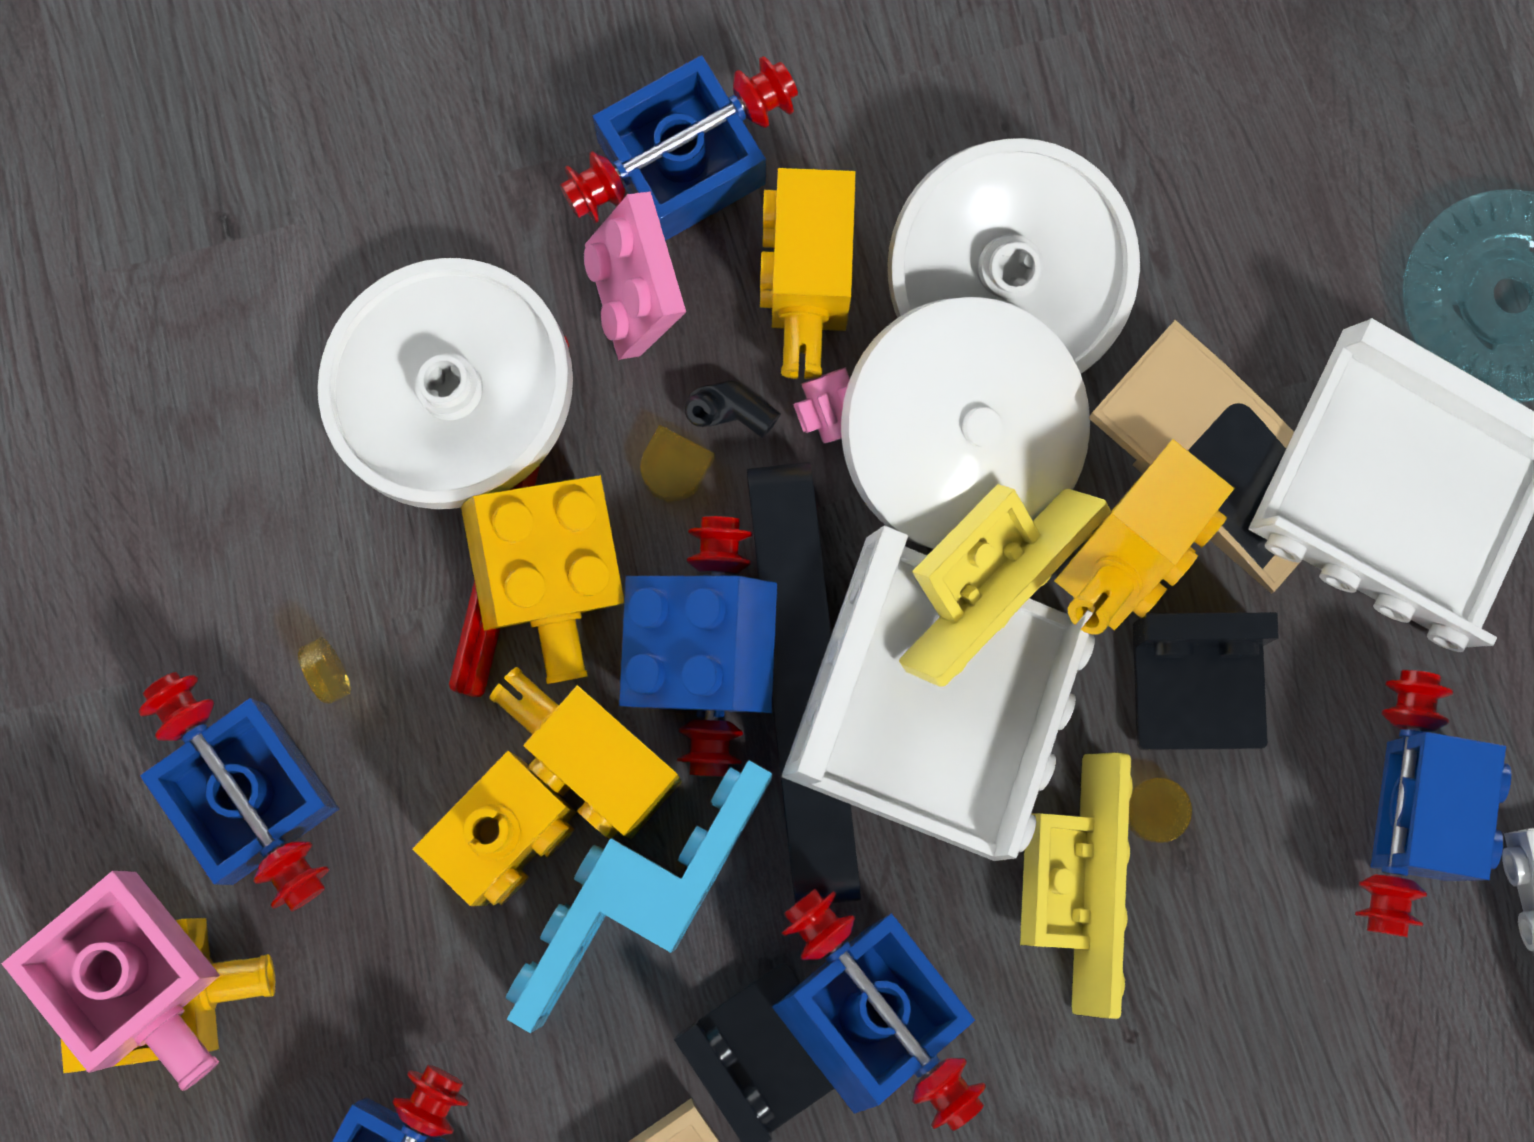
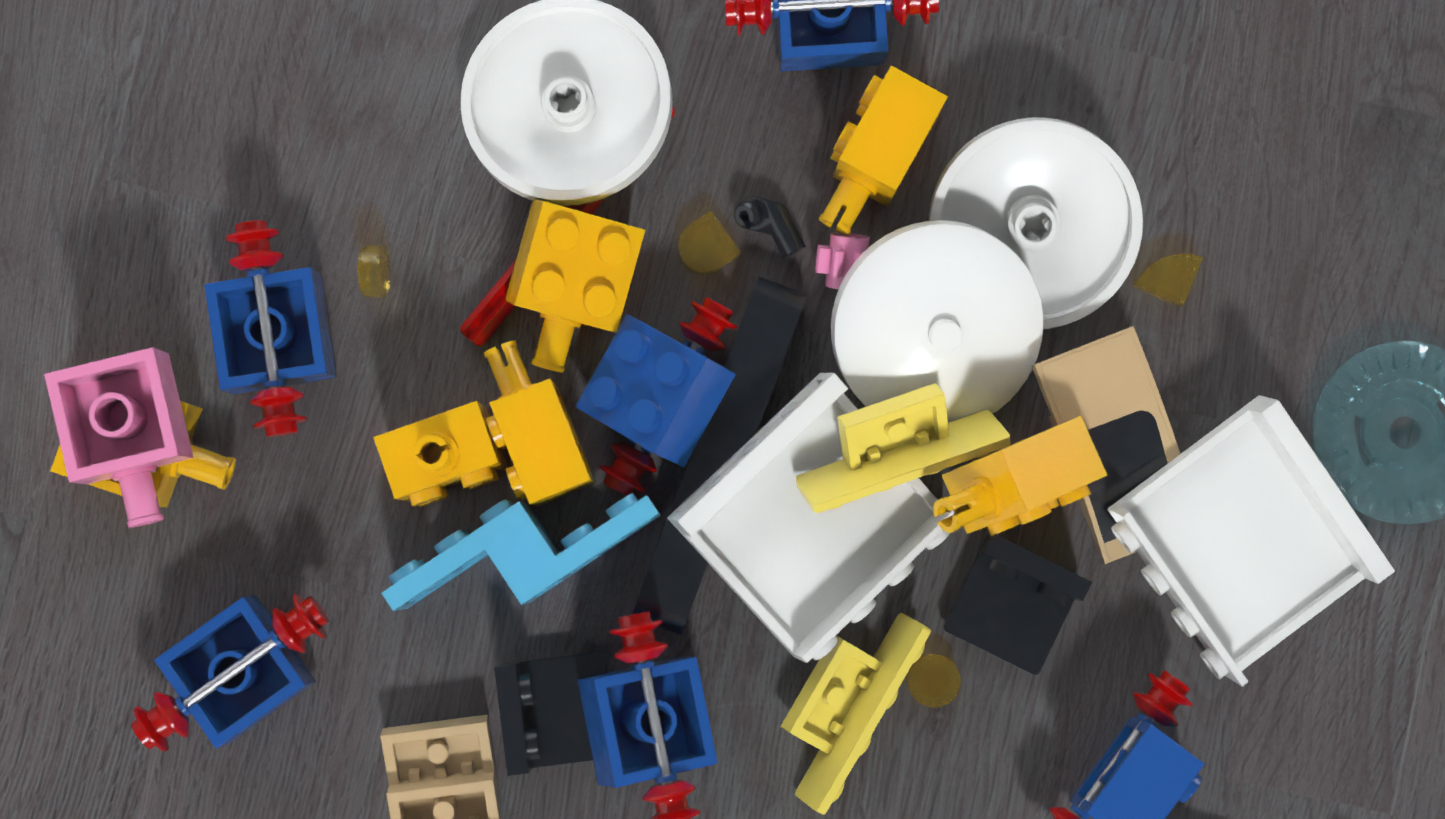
camera: 25 degrees right, 5 degrees up
(633, 276) = (745, 90): bright pink plate -> none
(1182, 257) = (1170, 278): none -> clear yellow tile

